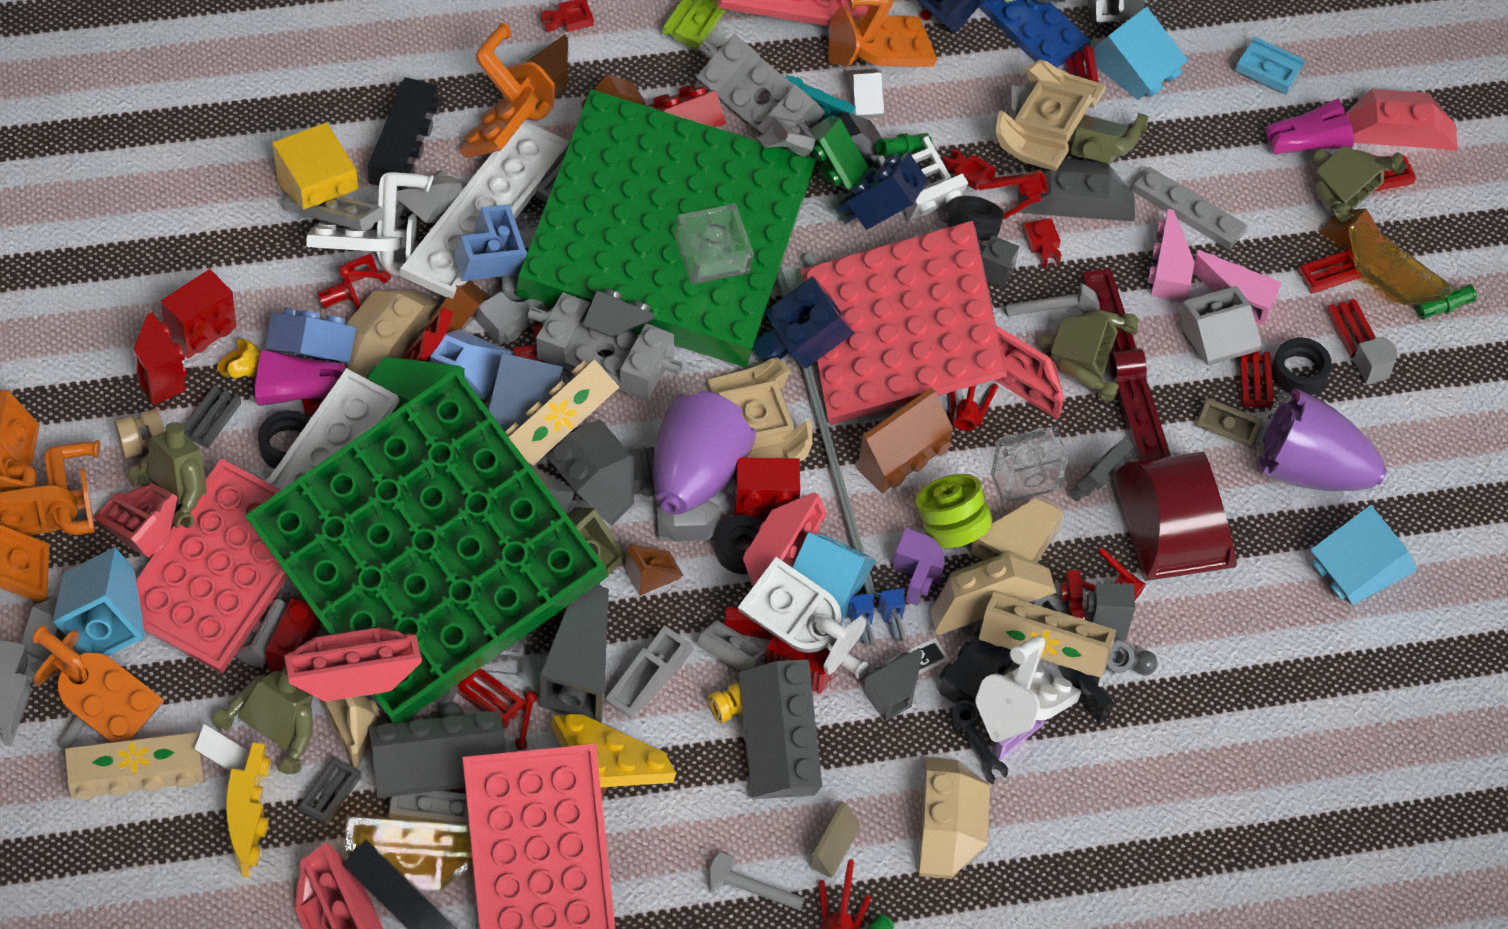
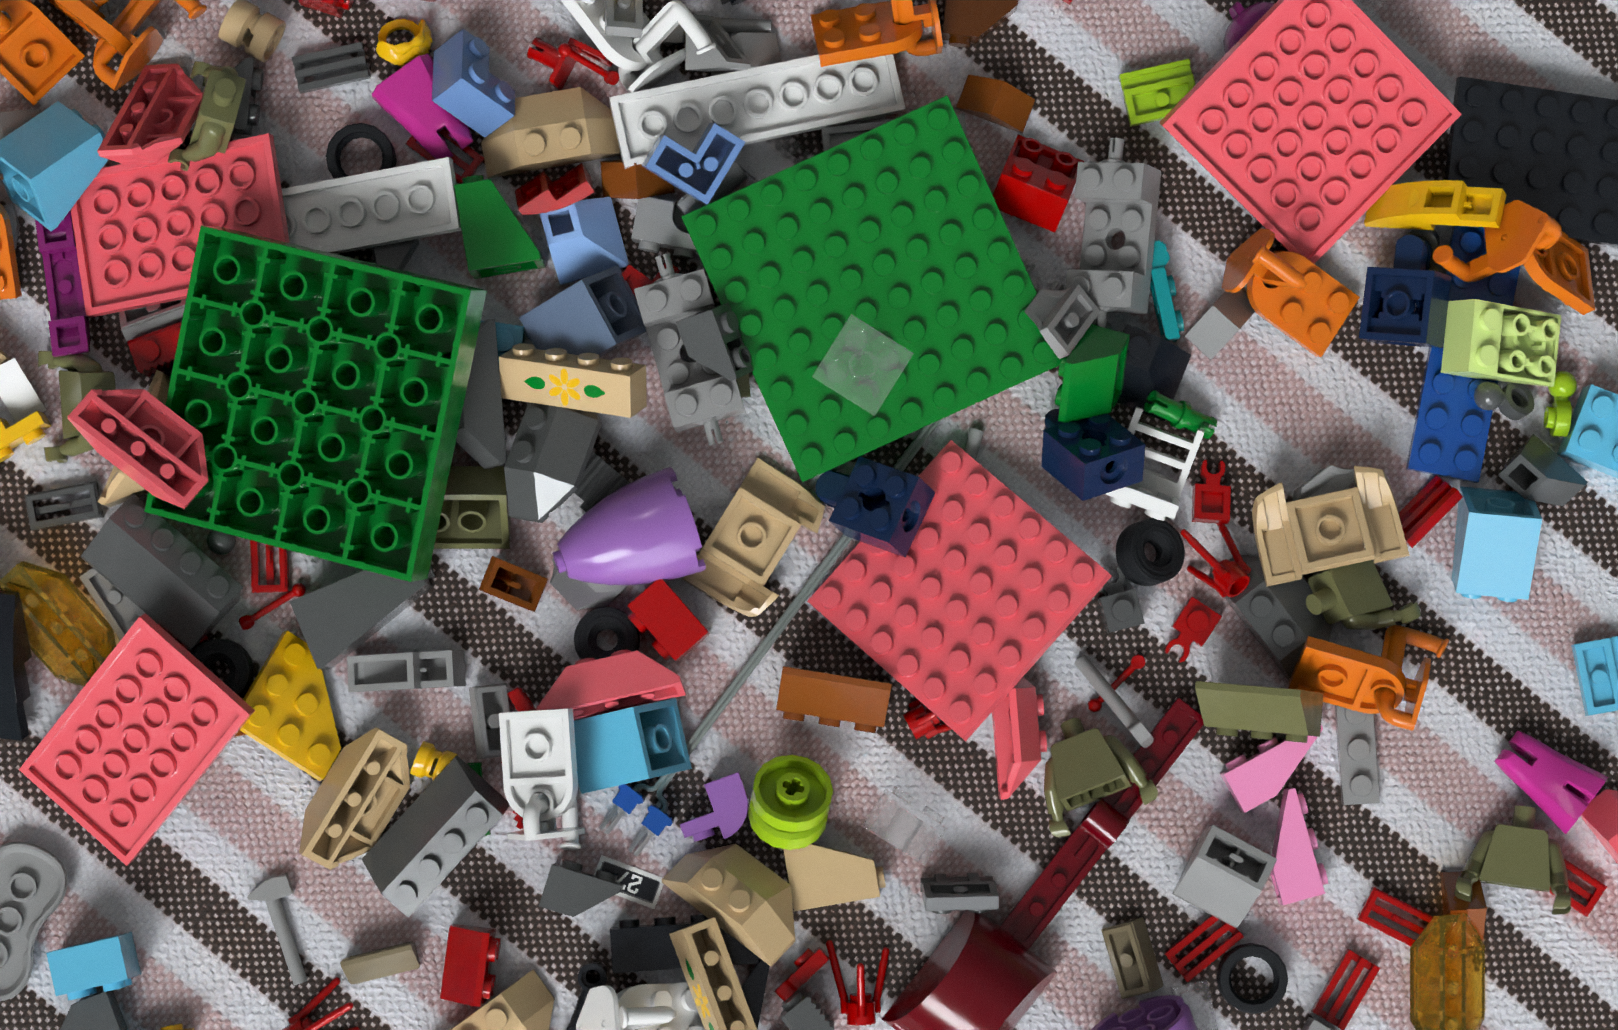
camera: 55 degrees right, 30 degrees up
(184, 673) = (68, 322): none -> magenta slope
(705, 758) = (356, 799): none -> tan wedge
(888, 779) = (469, 965): none -> red slope
(1038, 285) = (1137, 662): none -> red hinge
(1131, 224) = (1260, 710): none -> olive slope
(1152, 169) = (1367, 680): none -> orange plate

